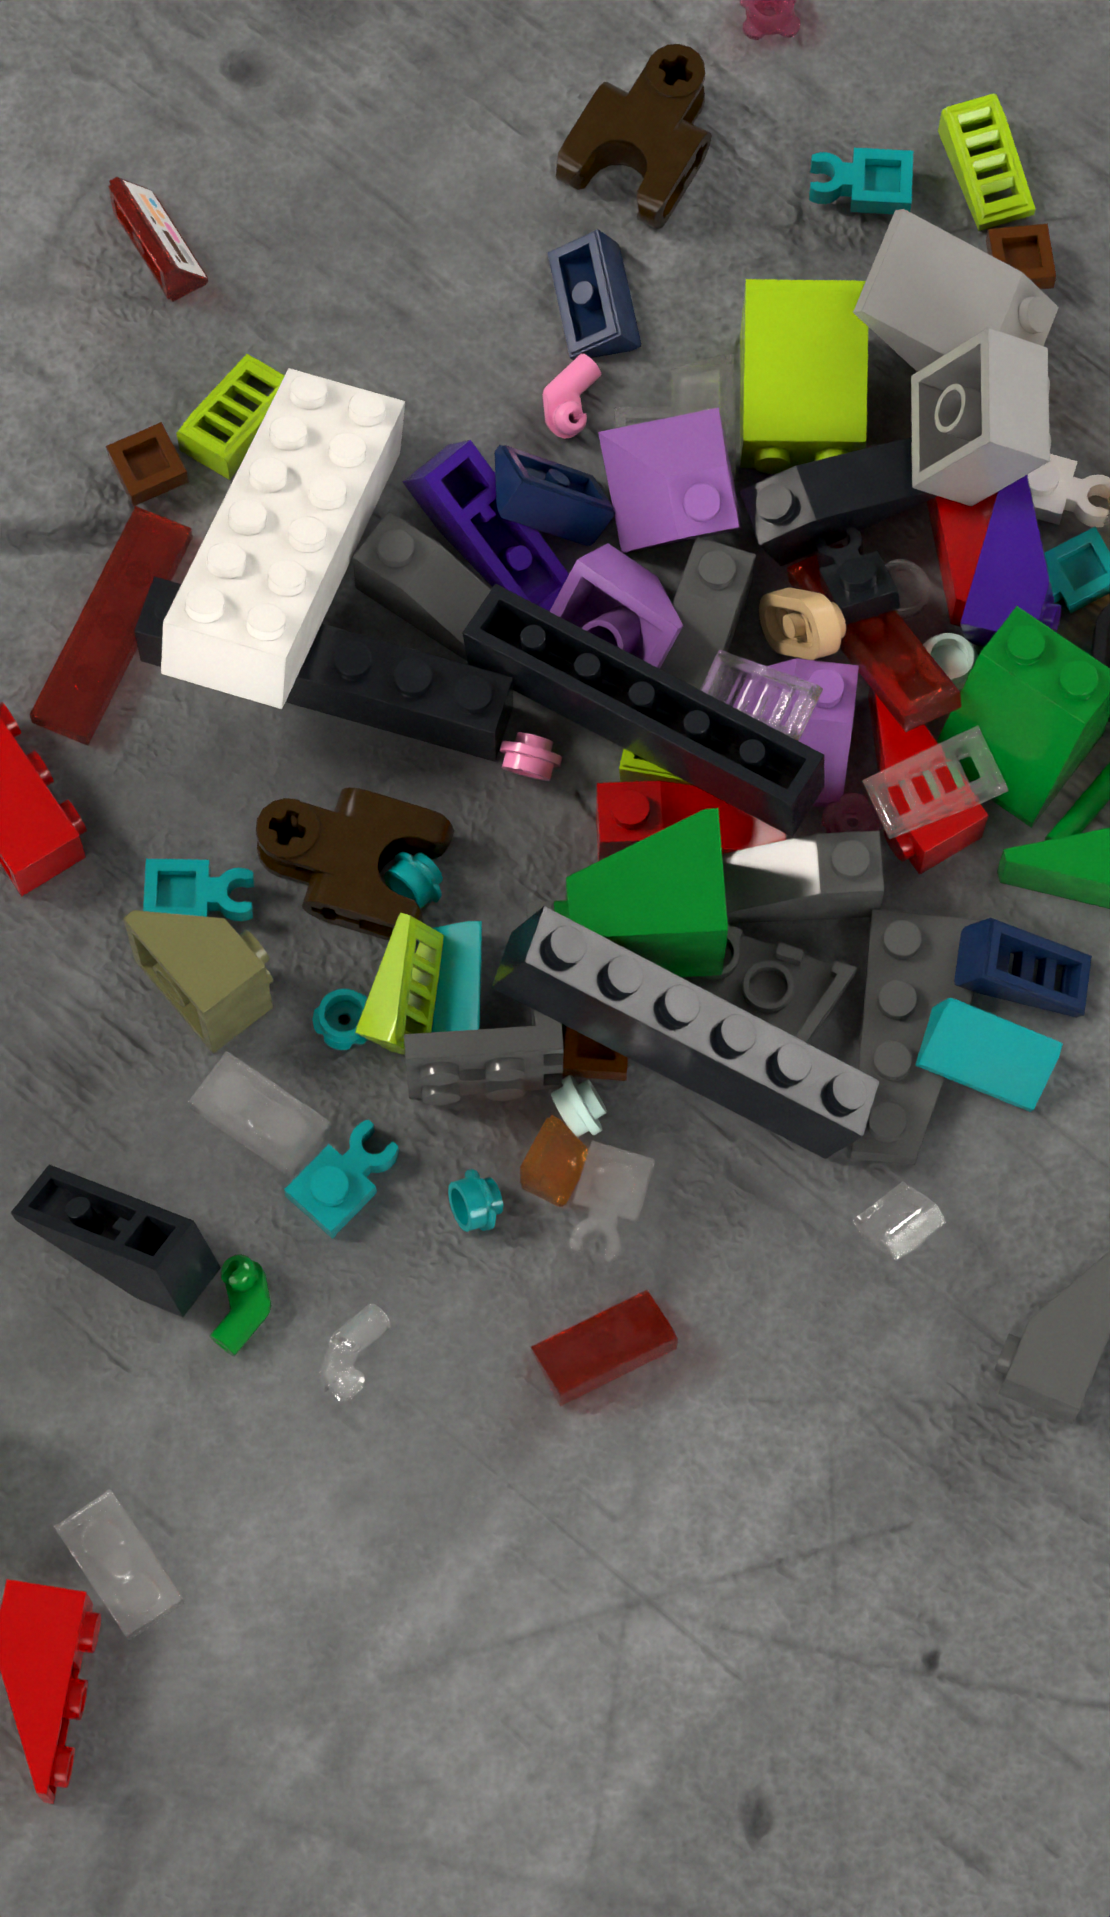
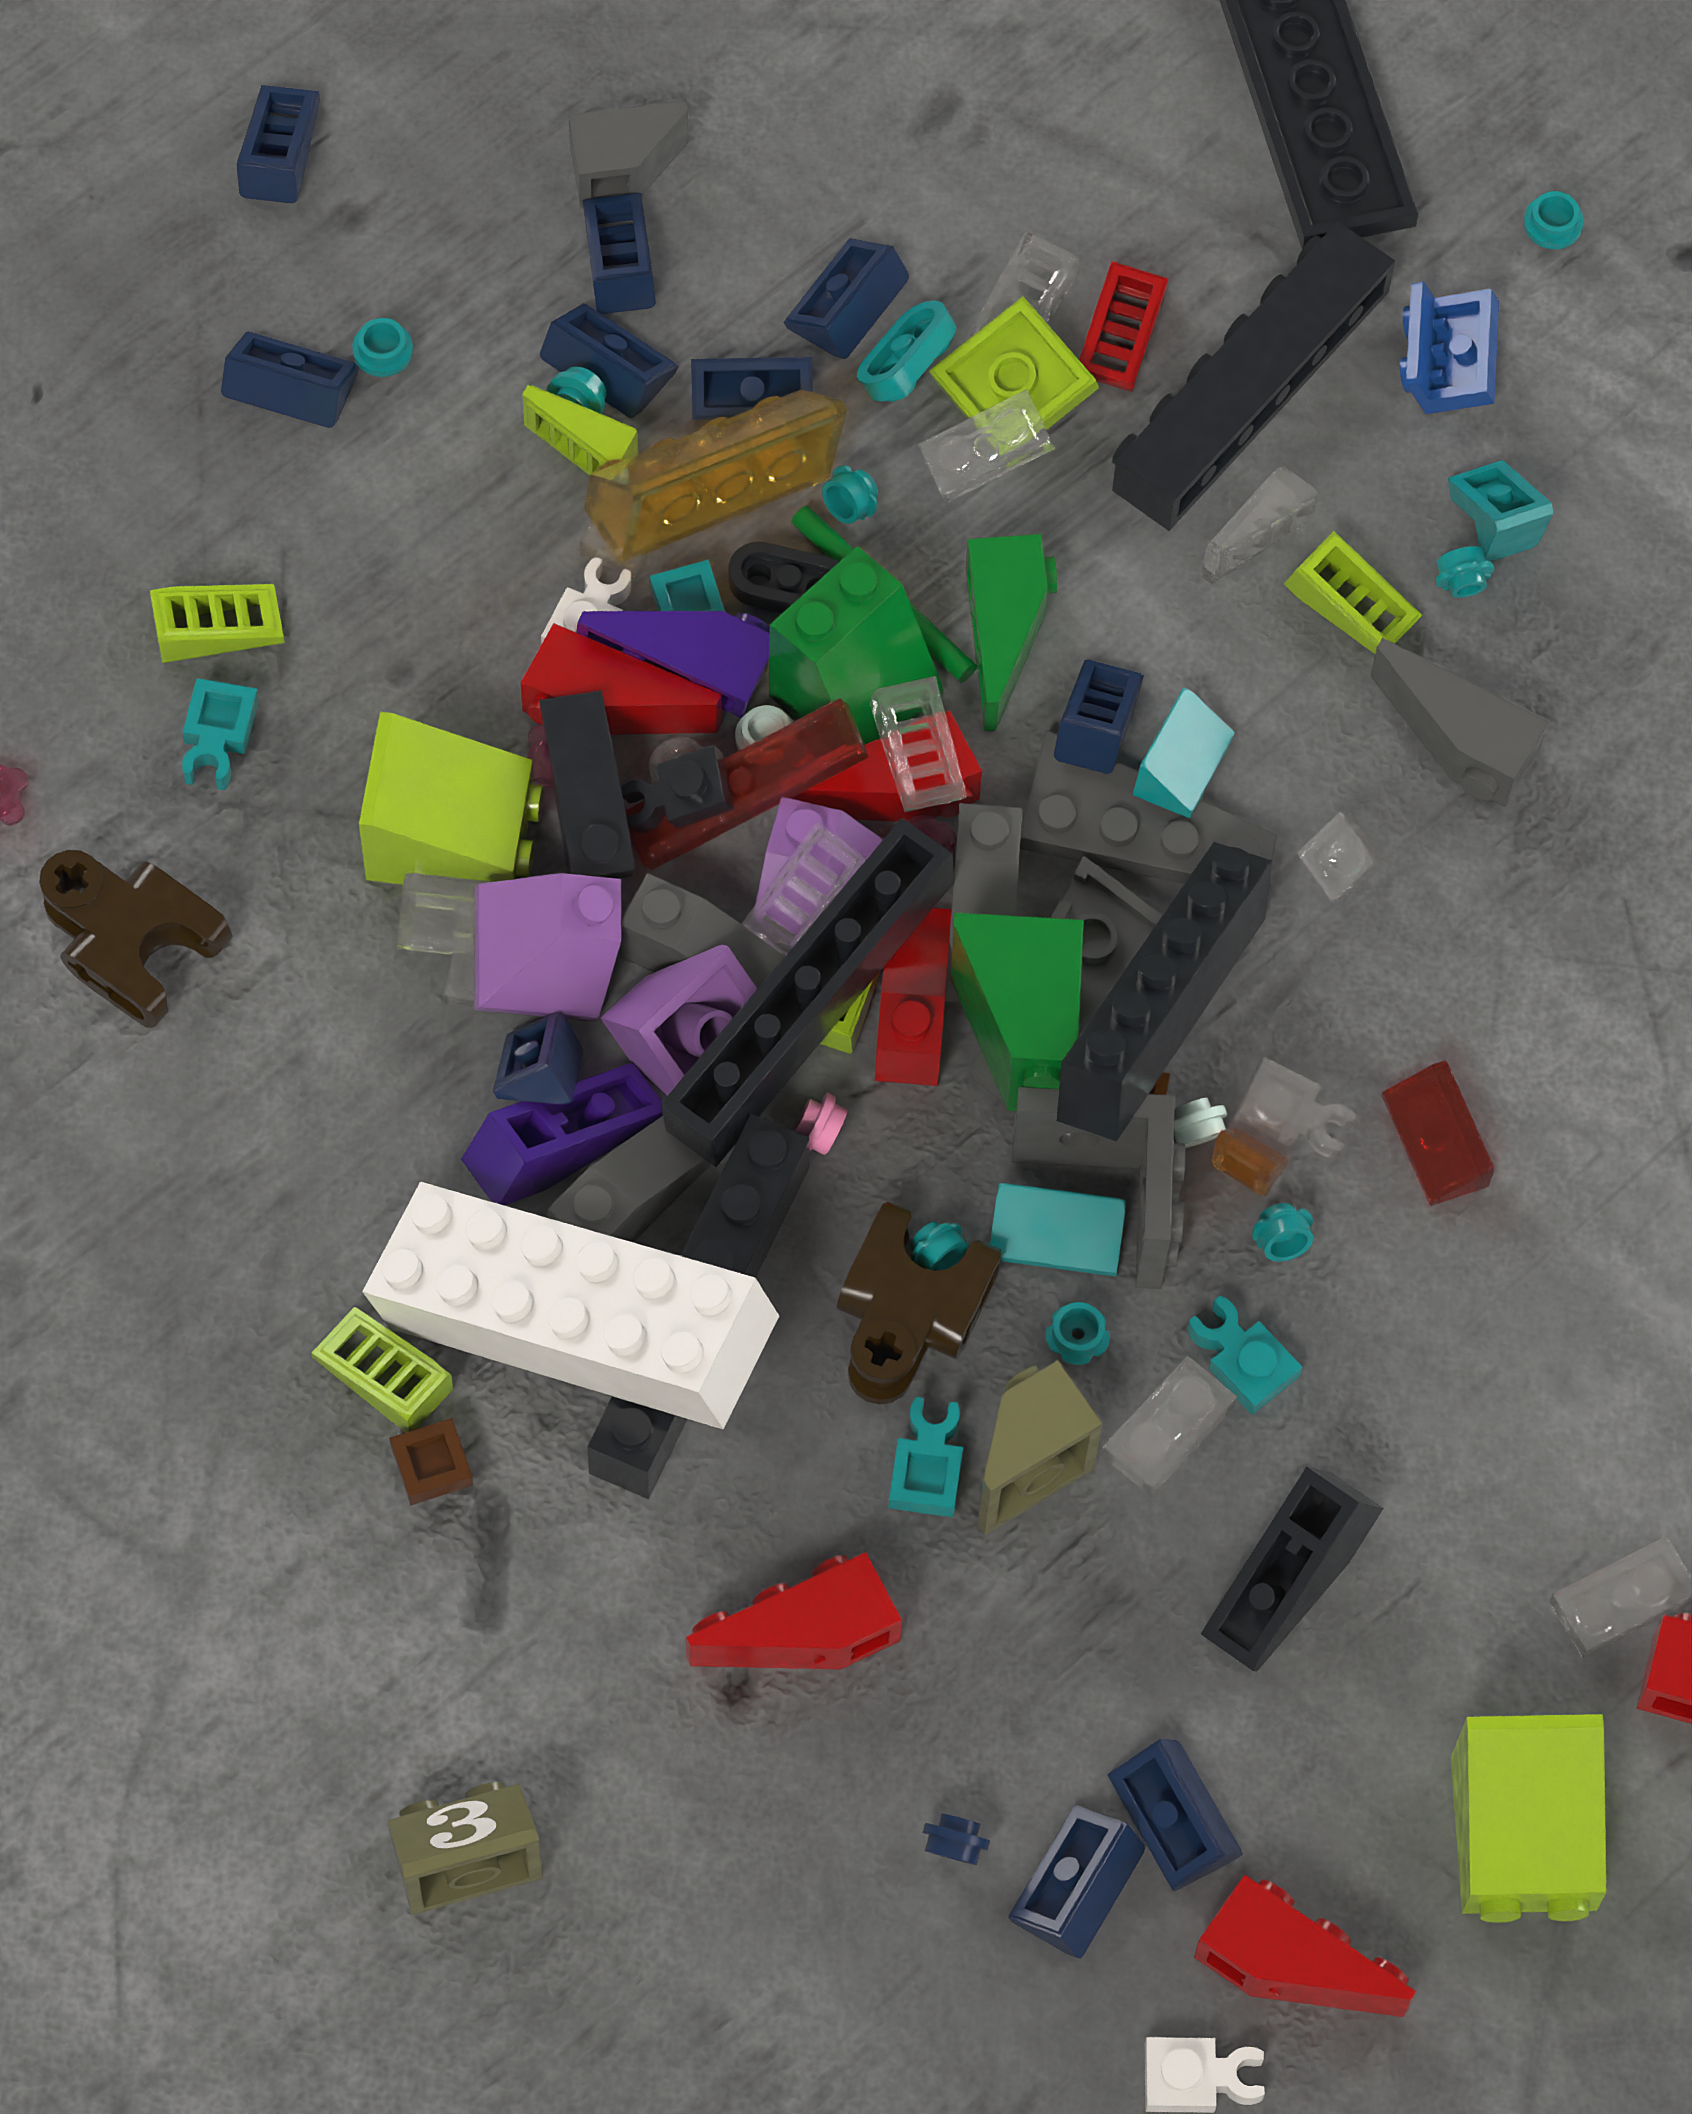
camera: 85 degrees left, 5 degrees down
(104, 632) = (609, 1518): clear red tile -> none
(156, 239) = (159, 1432): clear red slope -> none
(248, 1303) = (1367, 1455): green arm -> none
(344, 1348) = (1419, 1363): clear arm -> none
(404, 986) = (1079, 1269): lime slope -> none
(563, 400) = (417, 1051): bright pink arm -> none
(594, 297) = (301, 1010): dark blue slope -> none
(801, 623) = (722, 847): tan plate -> none
(941, 291) = (415, 648): light grey slope -> none
(980, 417) = (554, 631): light grey brick -> none
(1026, 250) = (332, 602): reddish brown plate -> none

